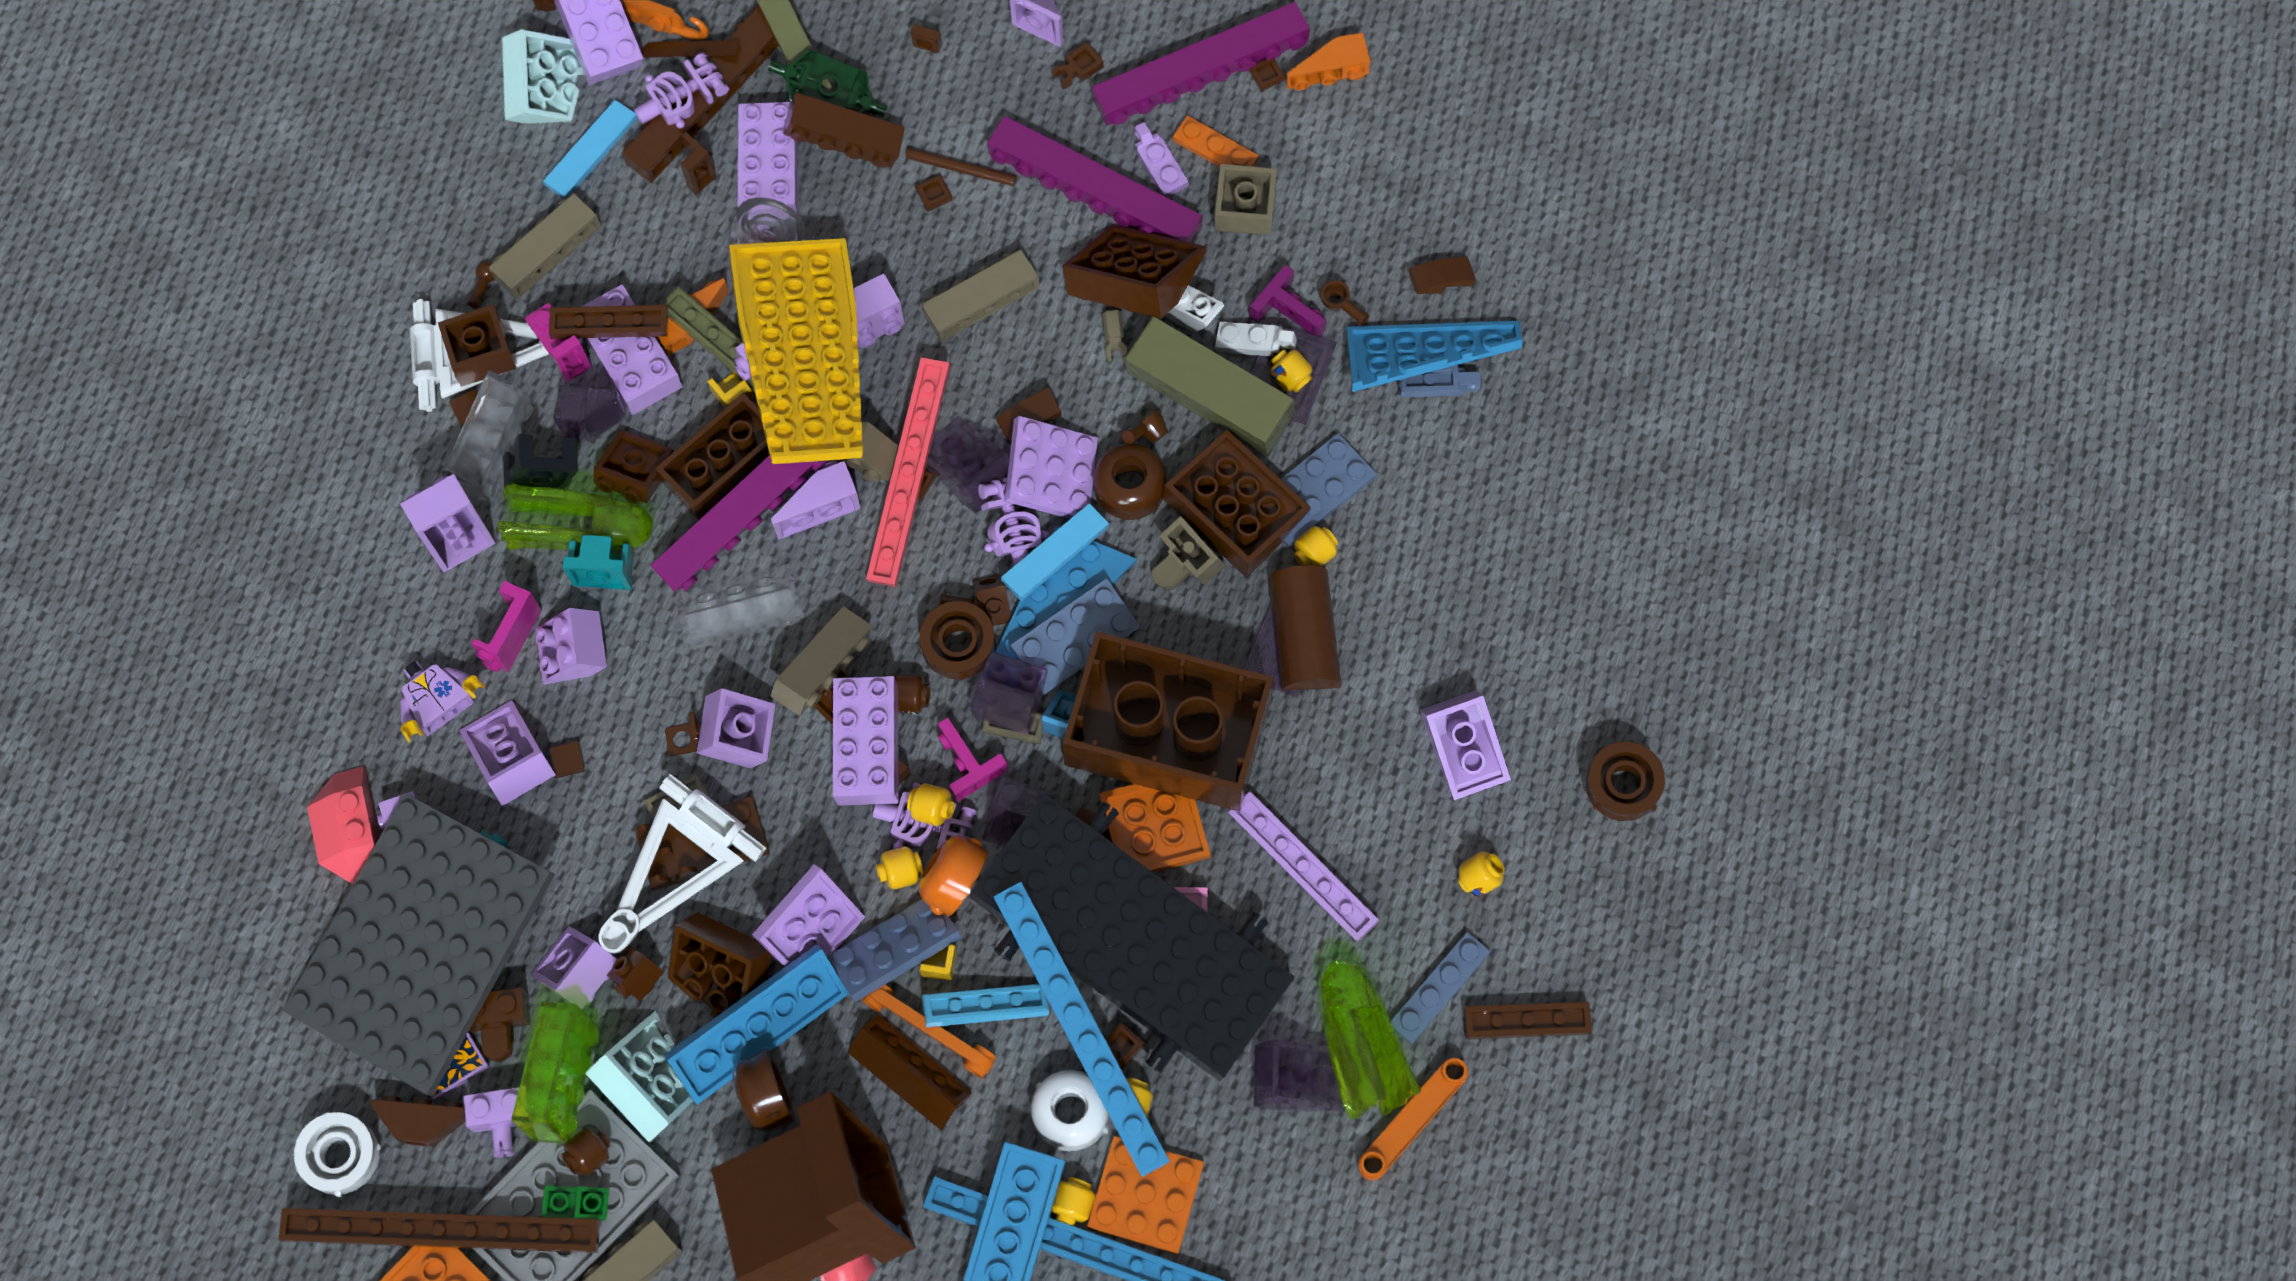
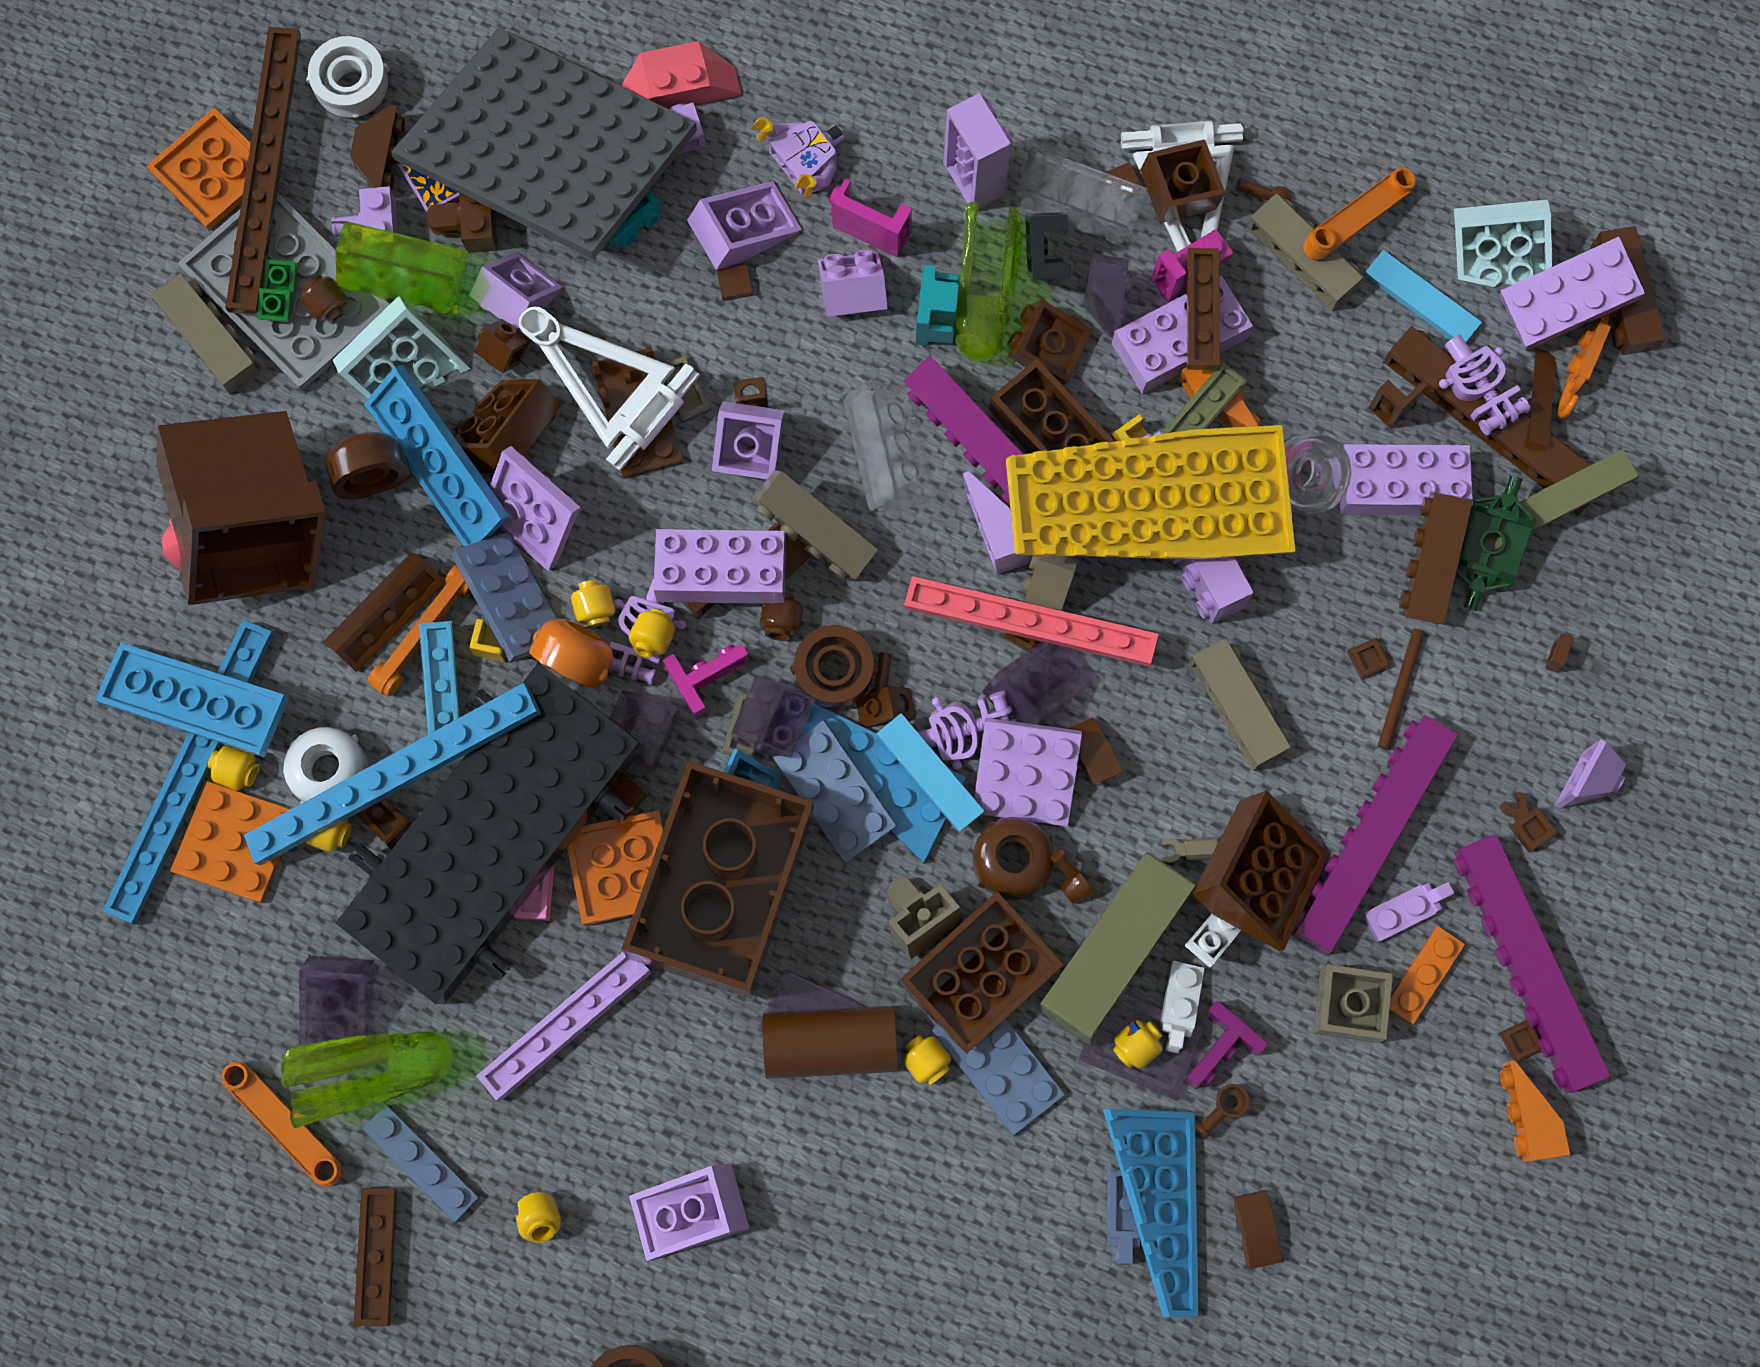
camera: 90 degrees right, 5 degrees up
(510, 196) = (1359, 214): none -> orange piece

